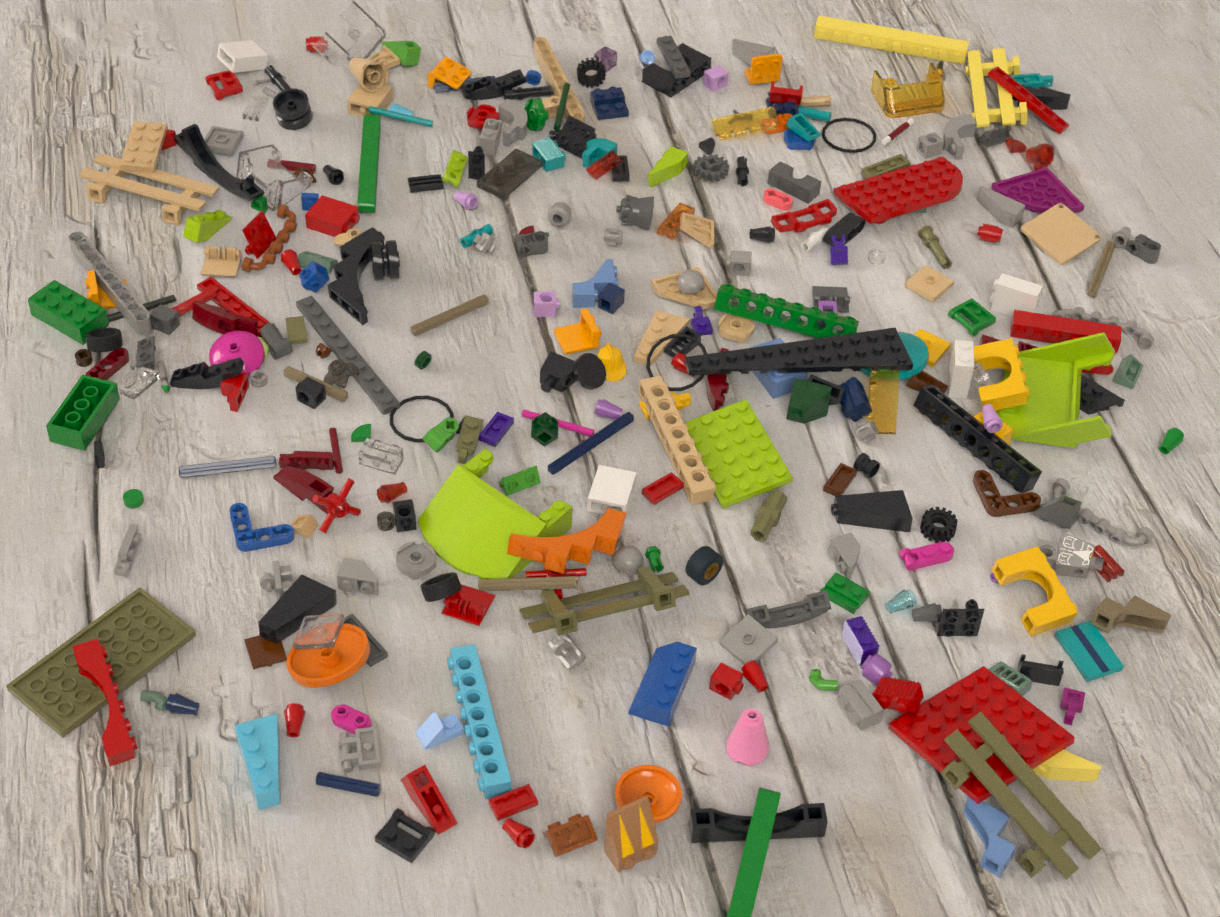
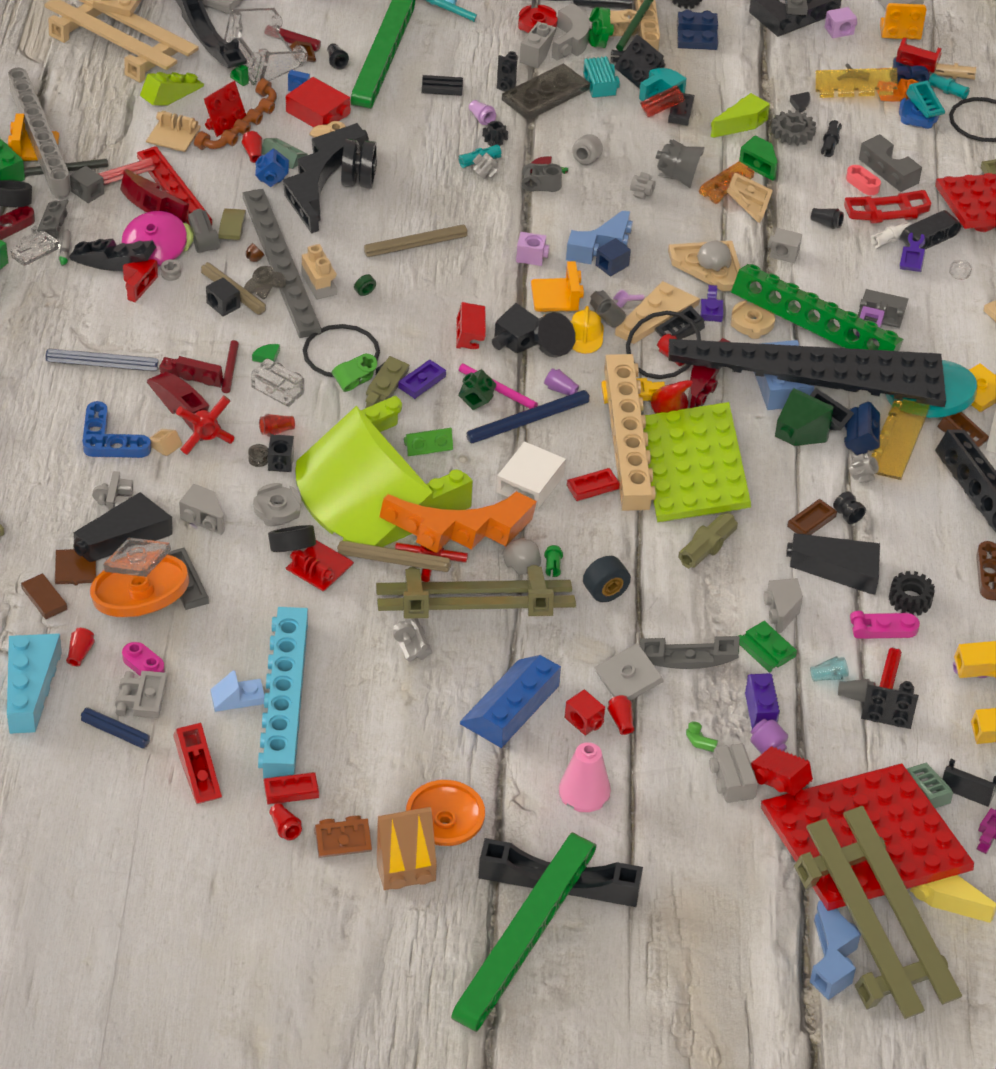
camera: 15 degrees right, 0 degrees up
(248, 682) = (44, 596): none -> reddish brown tile
(382, 357) = (318, 272): none -> tan hips
(402, 842) = (152, 801): black plate -> none
(455, 168) = (481, 74): lime plate -> none
(482, 215) = (495, 133): none -> black gear
(519, 377) = (470, 325): none -> red hinge
(622, 341) = (607, 308): none -> dark grey piece
(630, 329) = (622, 297): none -> lavender hand
(695, 195) = (760, 157): none -> green slope
(699, 405) = (671, 397): none -> red hat
(945, 591) = (890, 668): none -> red axle

